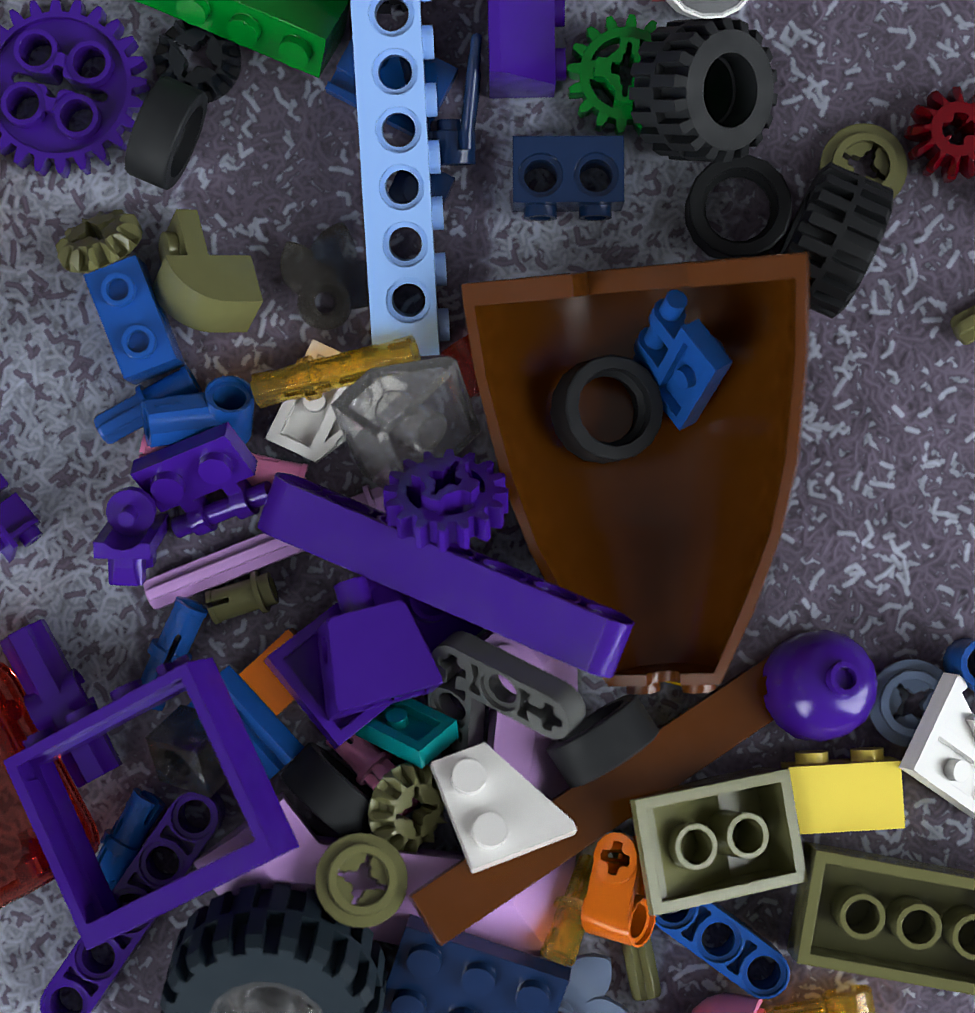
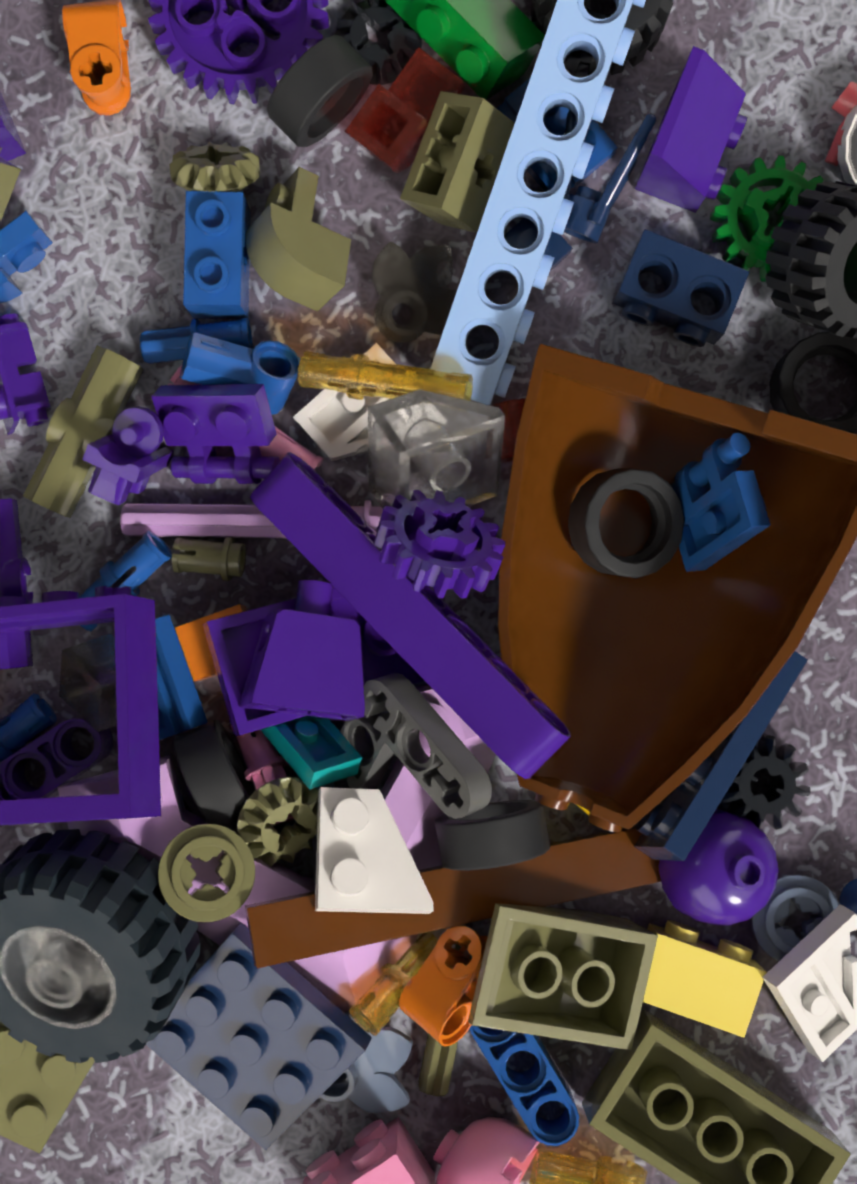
camera: 20 degrees right, 0 degrees up
(74, 527) = (76, 423): none -> olive piece
(252, 128) = (397, 118): none -> clear red brick
(318, 144) = (458, 161): none -> olive brick
(761, 662) = (681, 817): none -> dark blue plate
(827, 572) = (781, 791): none -> black gear

